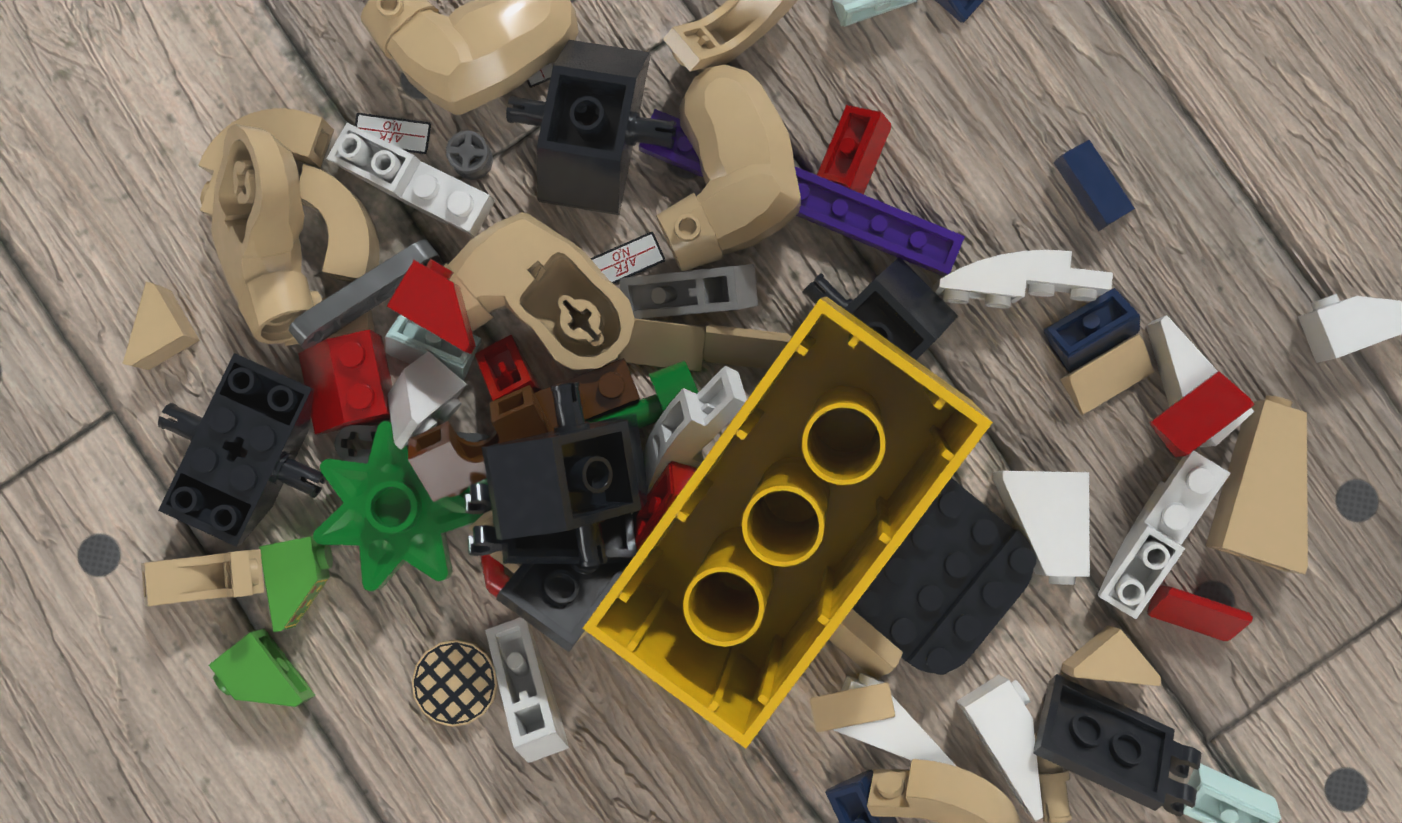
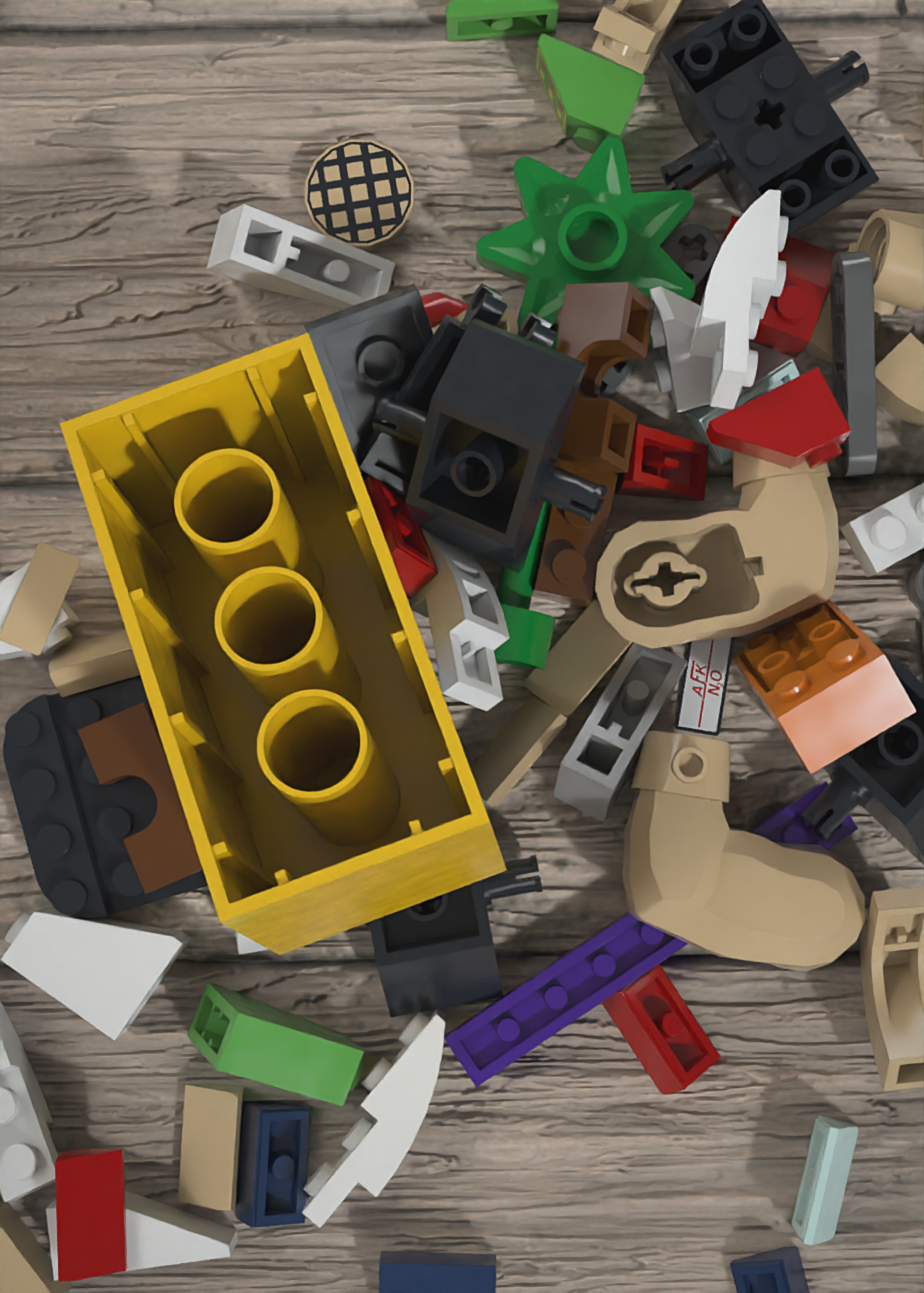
camera: 125 degrees right, 0 degrees up
(372, 388) = (738, 296): none -> white slope
(582, 181) = (823, 684): none -> orange slope
(903, 578) = (128, 747): none -> reddish brown arch
(1025, 374) = (274, 1046): none -> bright green slope

